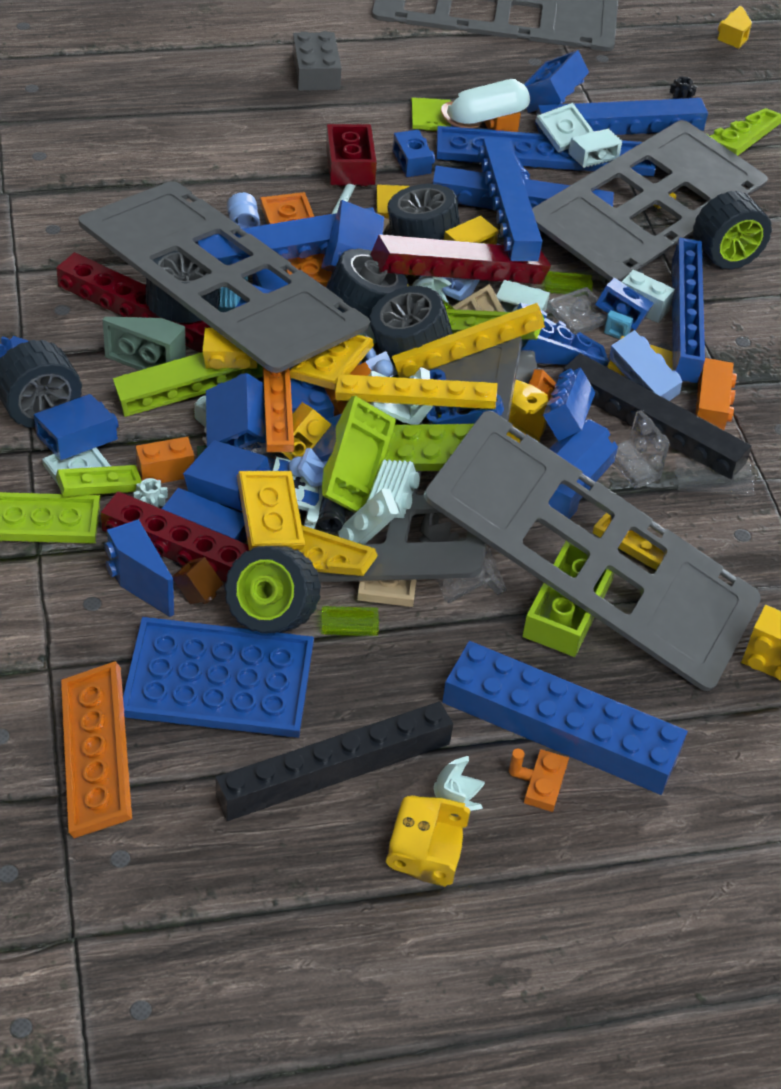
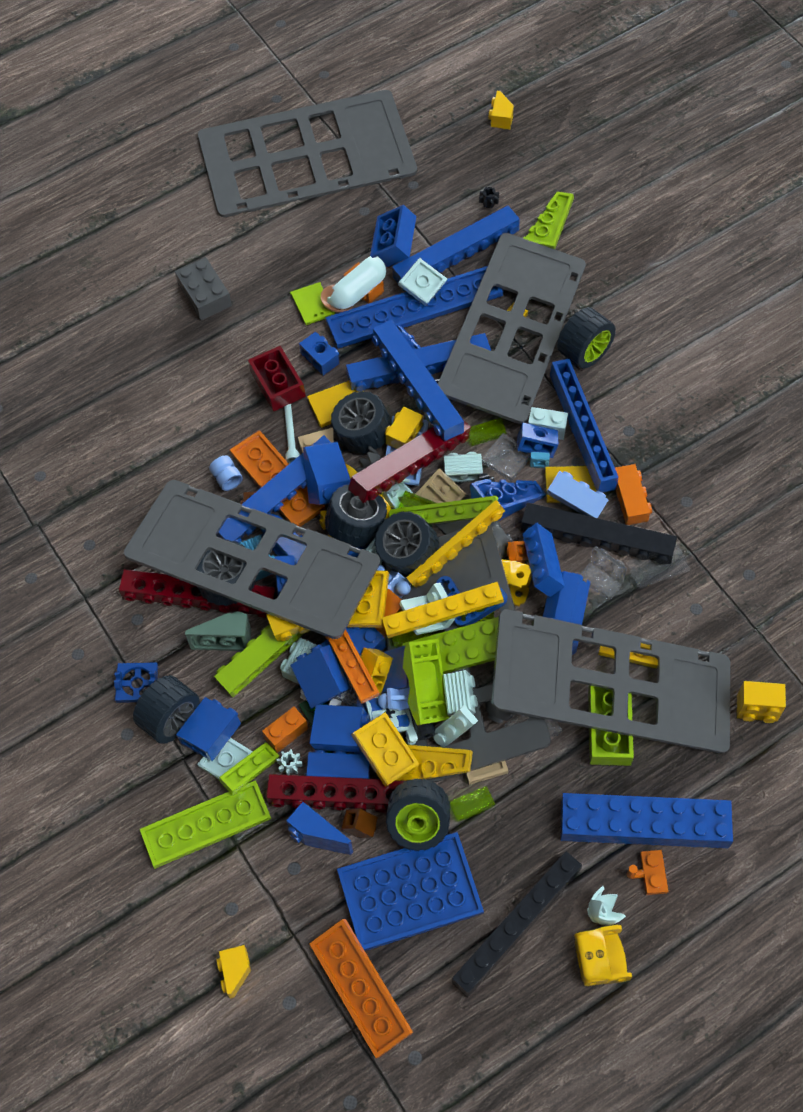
camera: 15 degrees left, 15 degrees up
(595, 147) = (453, 293): light aqua brick -> none

